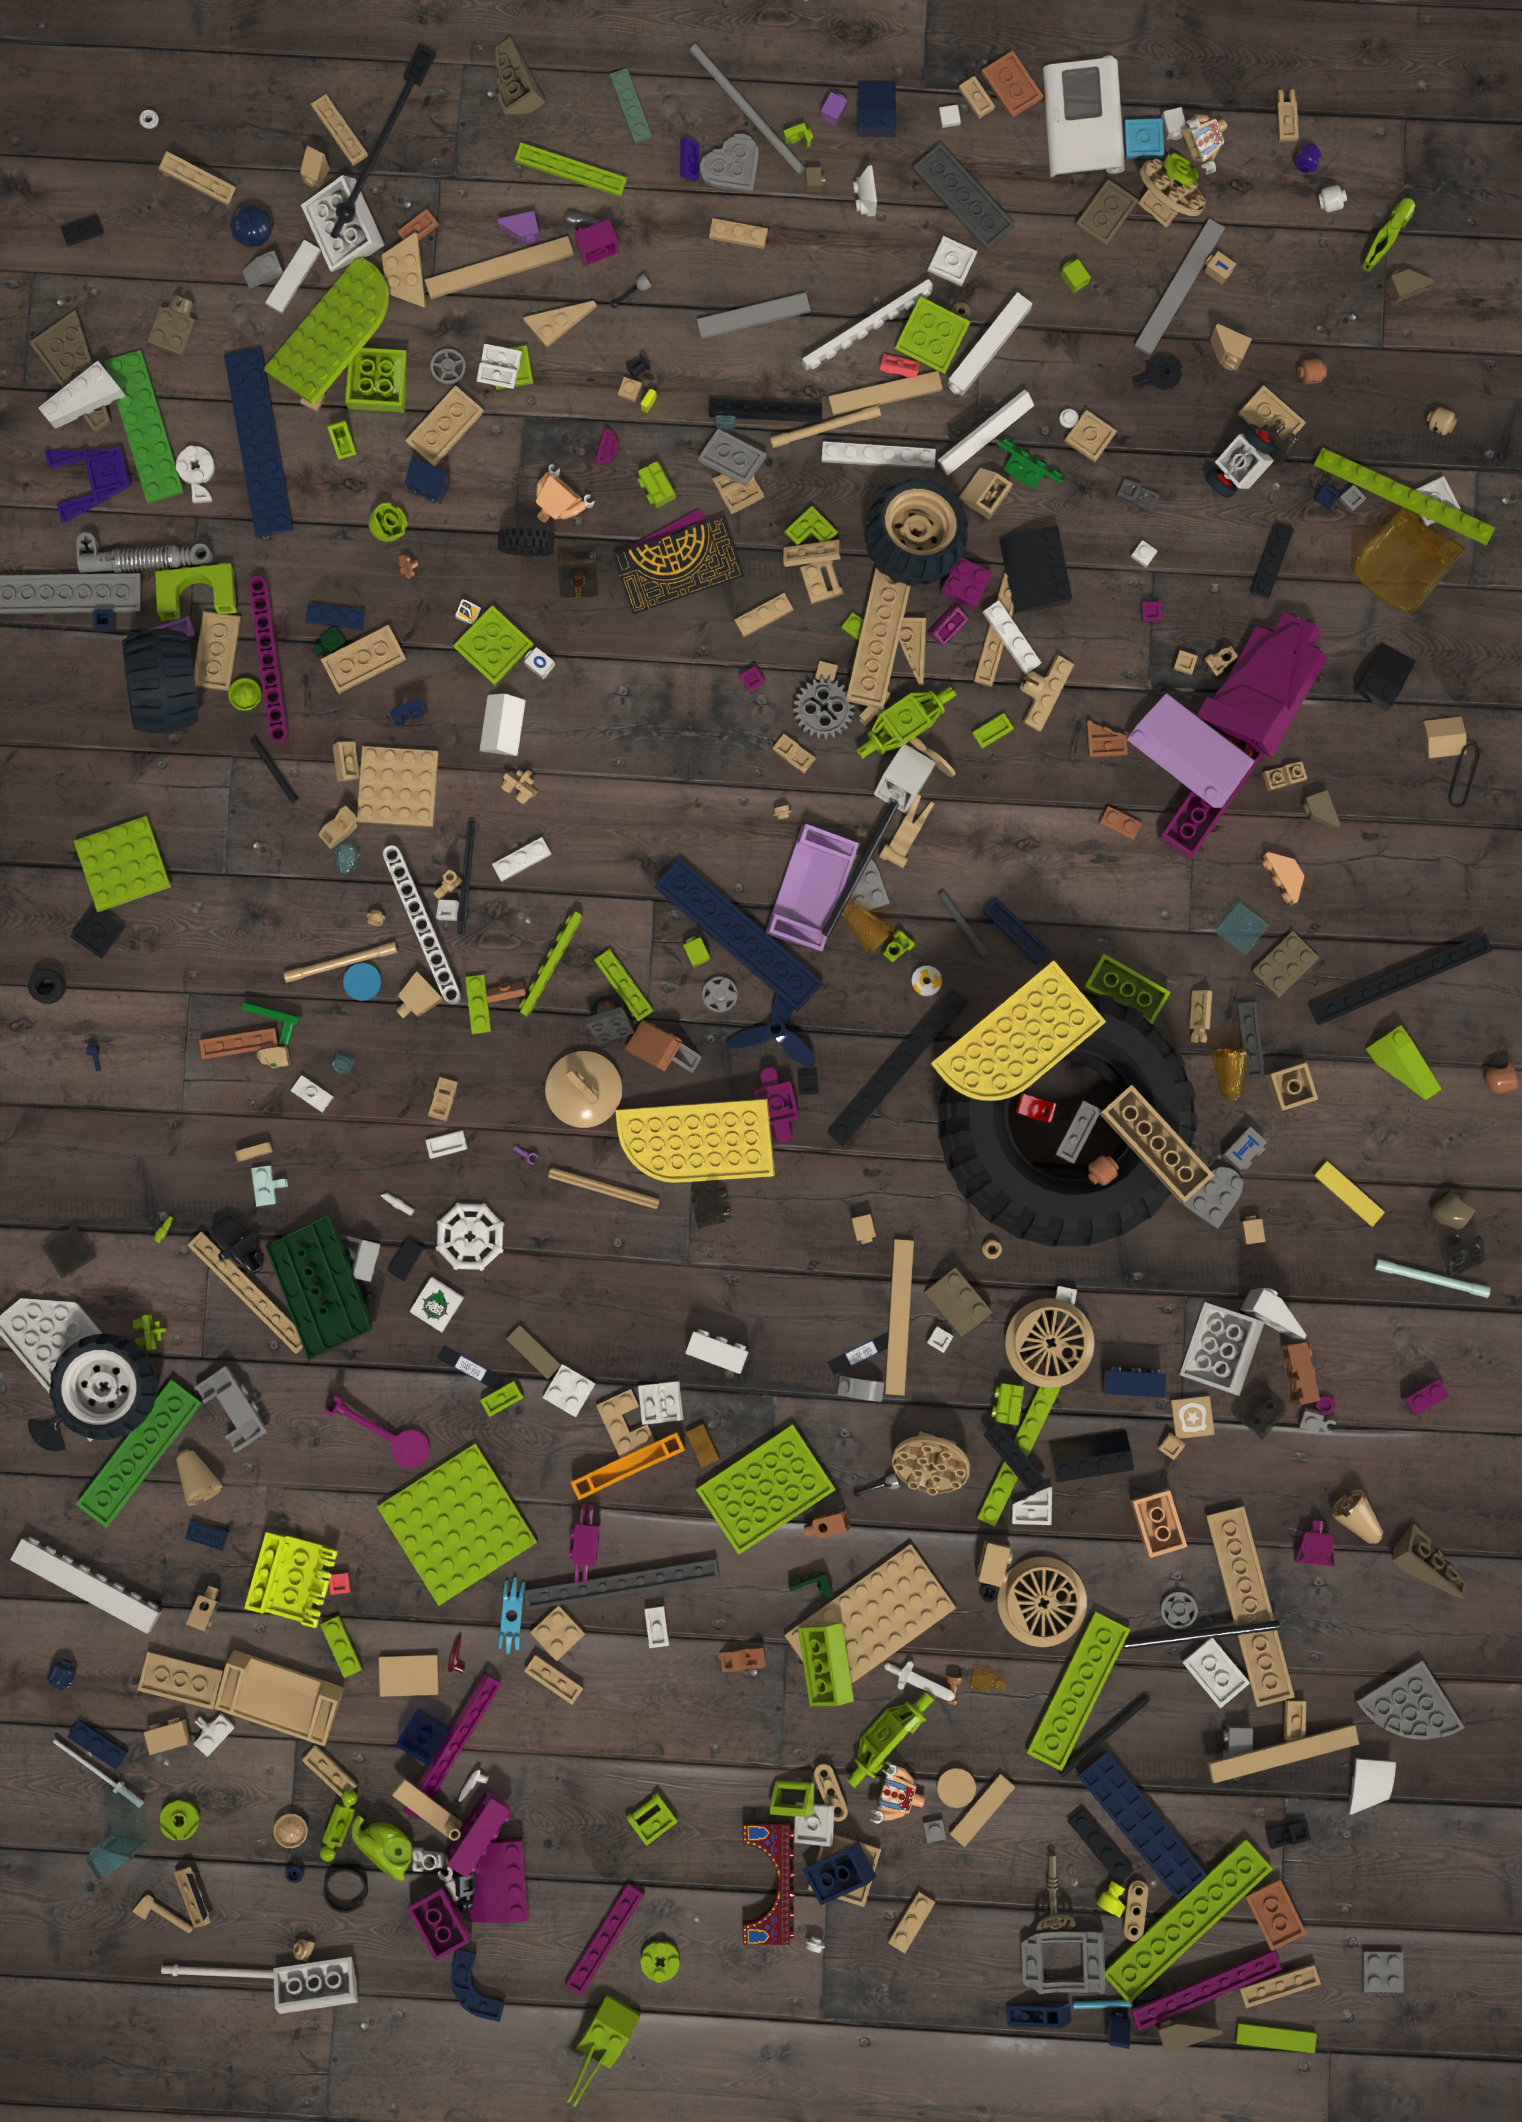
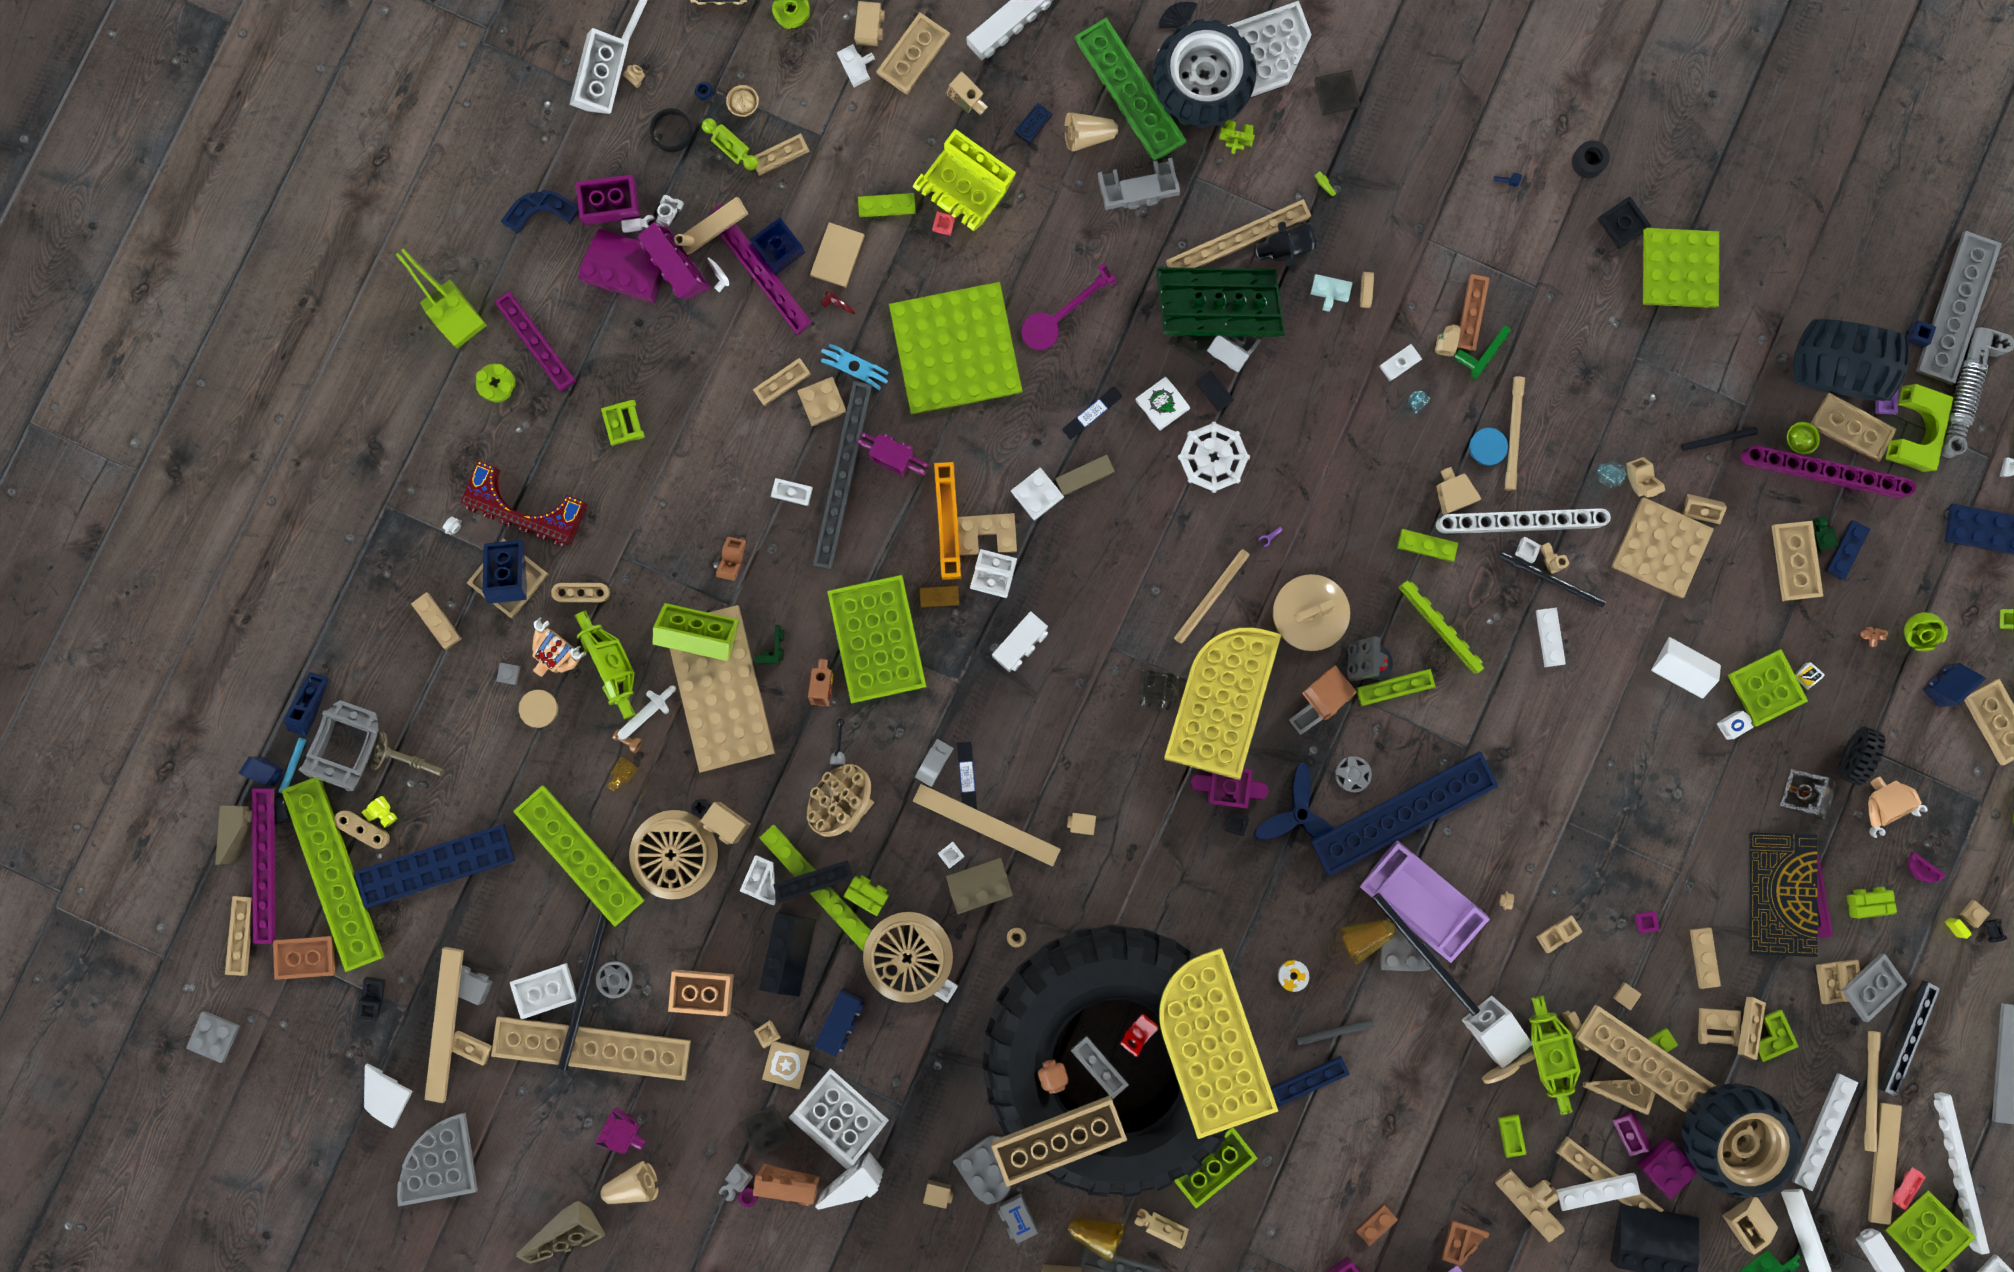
camera: 115 degrees right, 0 degrees up
(278, 1697) = (863, 133): tan slope -> none
(375, 918) = (1544, 481): tan plate -> none
(384, 1846) = (695, 177): lime piece -> none
(398, 1204) = (1268, 403): white piece -> none
(413, 709) = (1733, 589): dark blue plate -> none
(443, 1099) = (1350, 480): tan slope -> none
(446, 1144) = (1307, 467): white tile -> none
(464, 1888) = (628, 231): black plate -> none
(501, 1399) = (1053, 430): lime plate -> none
(505, 991) = (1431, 575): nougat plate -> none
(512, 781) = (1629, 657): tan hips -> none
(696, 951) = (1402, 767): lime brick -> none
(725, 423) = (1911, 994): clear light blue plate -> none
(804, 1810) = (579, 549): lime tile -> none
(816, 1828) = (558, 566): white tile -> none
(835, 696) = (1585, 963): light grey gear -> none
(897, 1067) = (1221, 916): black plate -> none
(900, 943) = (1339, 964): lime plate -> none
(905, 835) = (1440, 1010): tan flag -> none
(982, 1810) = (508, 724): tan tile -> none
(1074, 1761) = (517, 827): black bar -> none
(1100, 1846) = (432, 820): black plate -> none
(1276, 2037) = (196, 913): lime tile -> none

